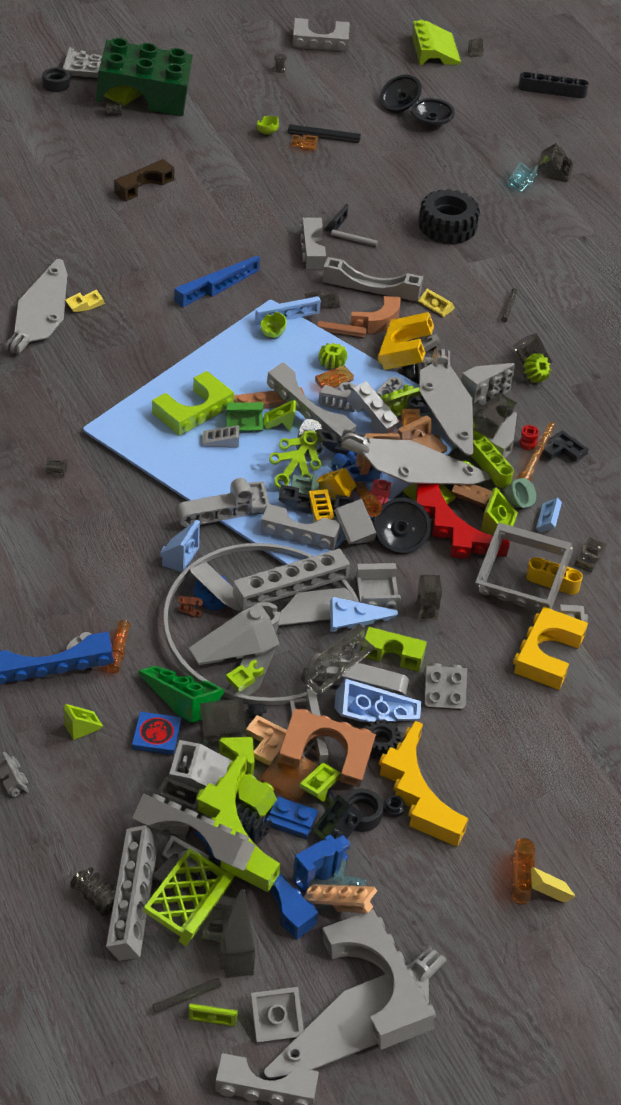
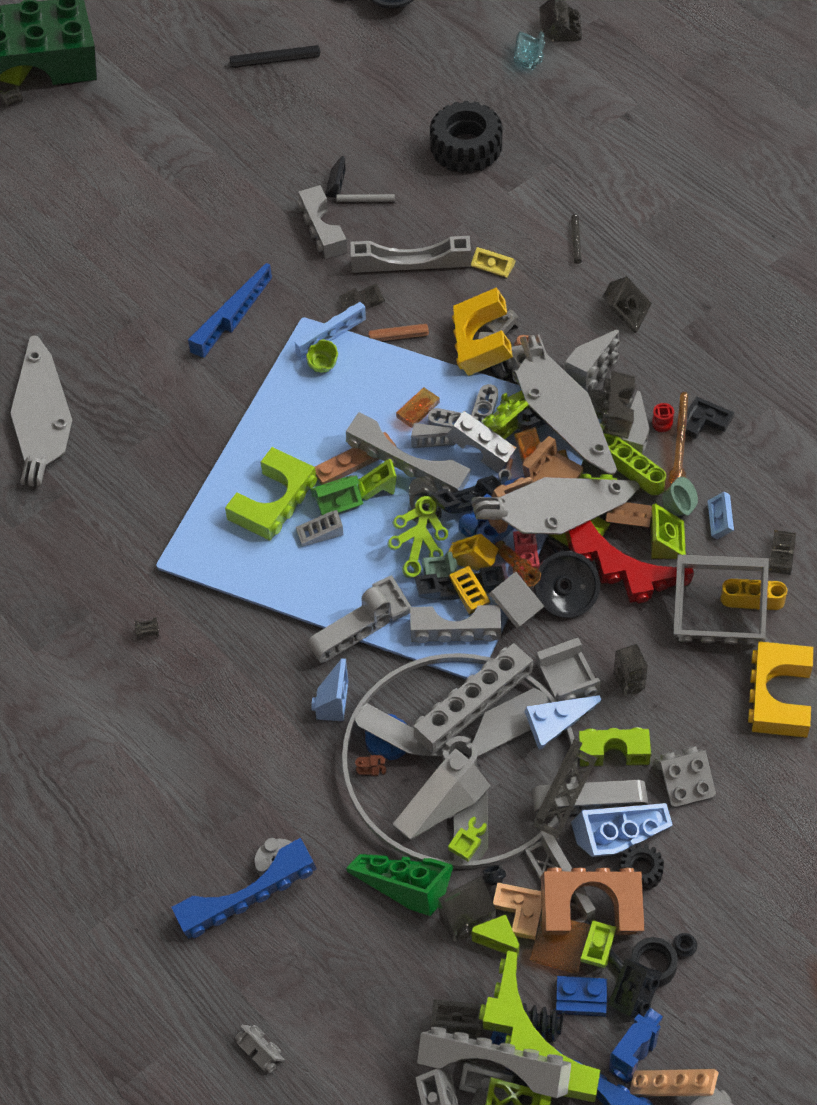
camera: 10 degrees left, 10 degrees up
(80, 721) = (308, 954): lime slope -> none
(82, 303) = (88, 388): light yellow slope -> none
(119, 645) = (311, 841): clear orange pin -> none
(156, 173) = (101, 176): dark brown arch -> none
(156, 733) = (395, 940): tile -> none
(197, 765) = (465, 972): light grey slope -> none
(256, 795) = (536, 986): lime slope -> none
(268, 125) = (205, 65): lime hair -> none
(307, 141) = (259, 75): clear orange plate -> none
(332, 355) = (405, 377): lime gear -> none
(342, 879) = (663, 1053): clear light blue bracket -> none
(379, 320) = (437, 309): nougat arch -> none
(426, 810) = (724, 941): yellow arch -> none
(537, 368) = (640, 321): lime gear -> none
(574, 611) = (792, 637): light grey bracket -> none

